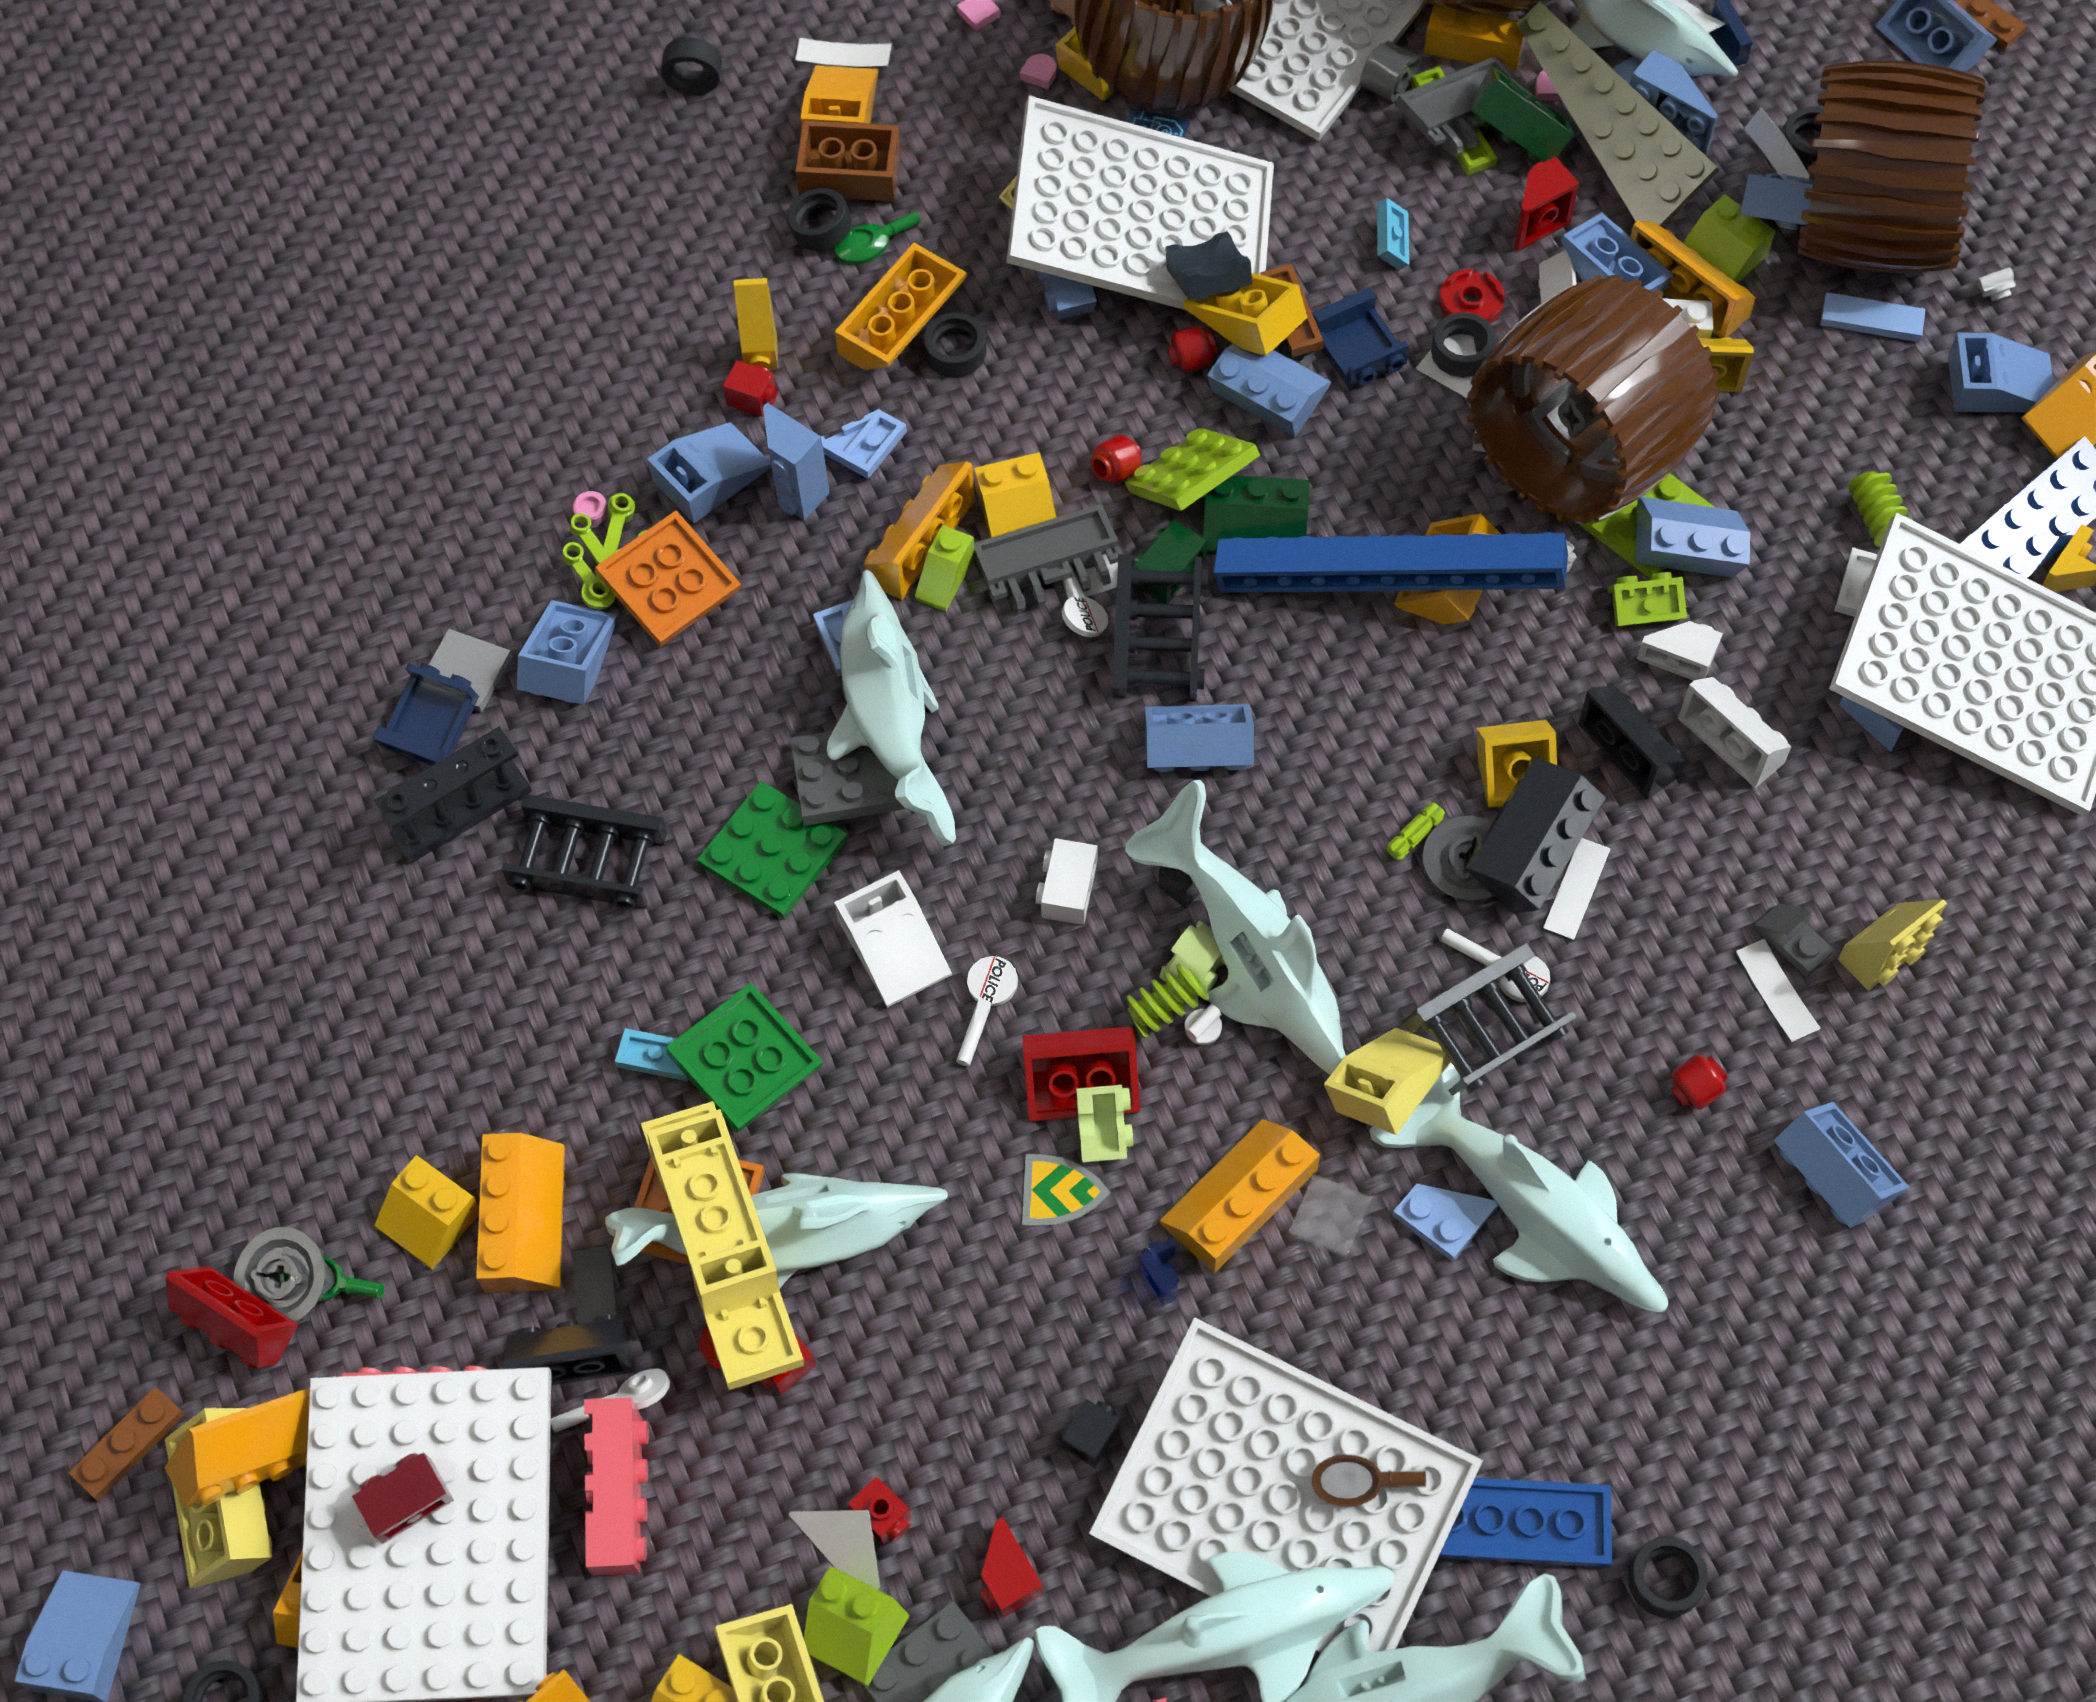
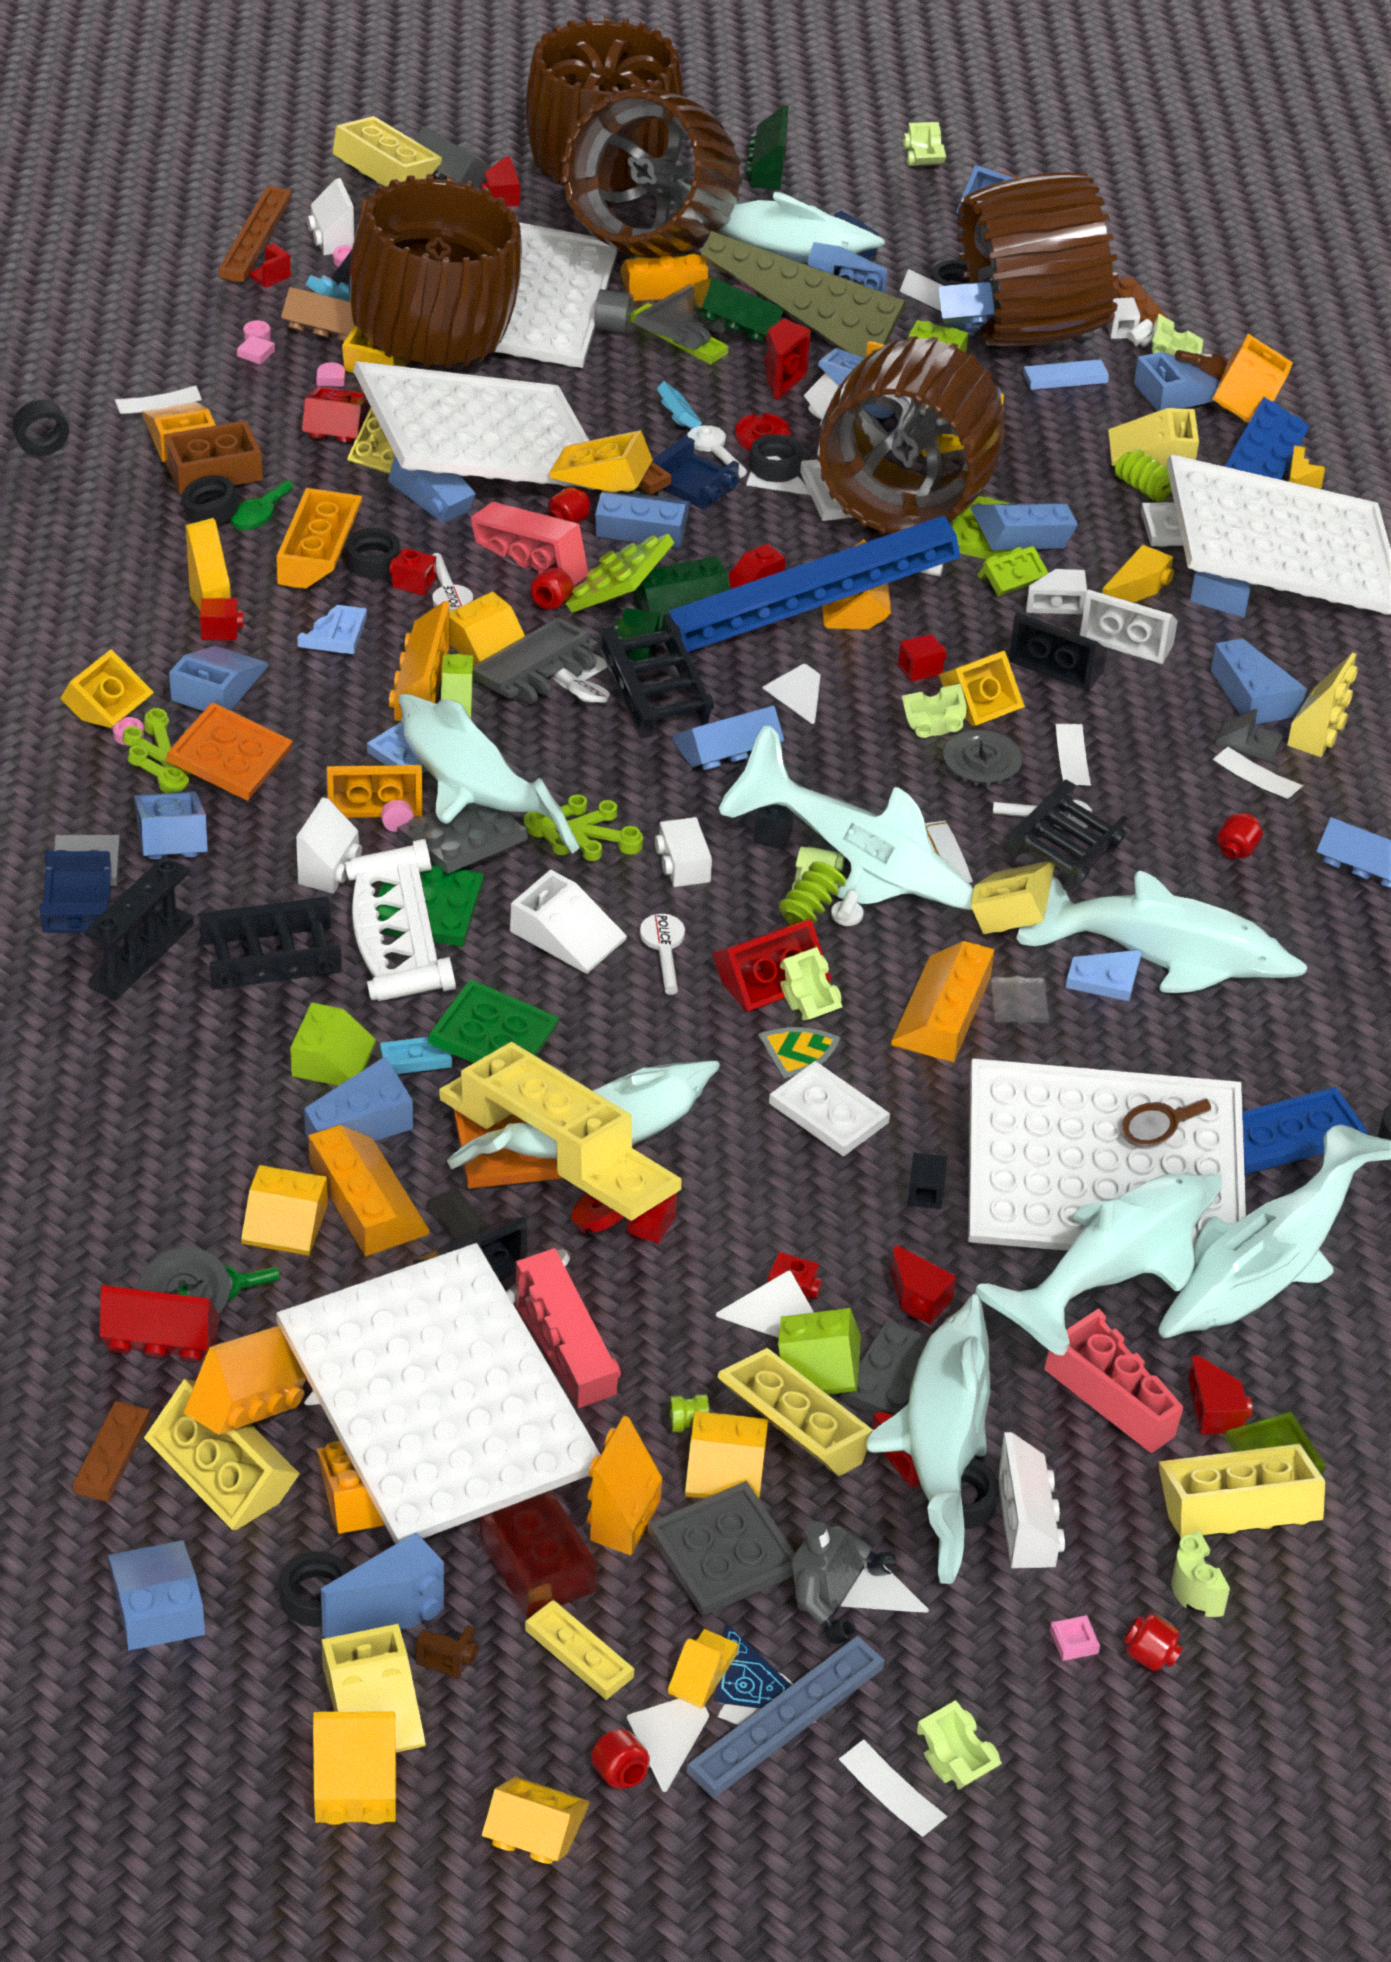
camera: 30 degrees left, 20 degrees down
(402, 1496) = (412, 1354): dark red brick -> none
(563, 1109) = (368, 1103): none -> medium blue wedge
(576, 1014) = (330, 1046): none -> lime slope
(585, 456) = (106, 691): none -> yellow slope
(684, 1637) = (682, 1411): none -> lime wheel
(696, 749) = (325, 846): none -> white slope
(713, 947) = (420, 971): none -> white piece
(786, 683) = (367, 789): none -> light orange slope
(795, 463) = (294, 642): medium blue slope -> none
(796, 722) = (396, 814): none -> bright pink tile
(979, 803) = (629, 839): none -> lime plant
(982, 386) = (413, 571): none -> red brick
(998, 127) = (334, 413): none -> slope
(1010, 434) = (455, 594): none -> white piece
(1041, 1292) = (829, 1108): none -> white plate
(1127, 386) = (531, 539): none -> coral wedge
(1160, 1277) = (914, 1068): clear blue bracket -> none
(1208, 267) = (561, 440): black brick -> none
(1317, 687) = (798, 691): none -> white sticker
(1348, 510) = (756, 565): none -> red slope
(1360, 976) = (945, 845): none -> white sticker
(1407, 288) = (713, 439): none -> white piece
(1415, 831) = (931, 752): lime axle -> none
(1444, 778) = (936, 713): none -> yellowish green cylinder
(1474, 693) = (921, 657): none -> red brick
(1534, 835) = (1027, 722): black slope -> none
(1787, 660) = (1141, 575): none -> yellow slope
(1839, 865) = (1256, 682): none -> medium blue wedge
(1921, 457) = (1157, 435): none -> light yellow slope
(1984, 251) = (1125, 318): none -> white brick
(2021, 233) = (1129, 288): none -> dark orange plate
(2025, 316) = (1169, 341): none -> yellowish green cylinder
(2050, 357) = (1208, 362): none -> reddish brown piece

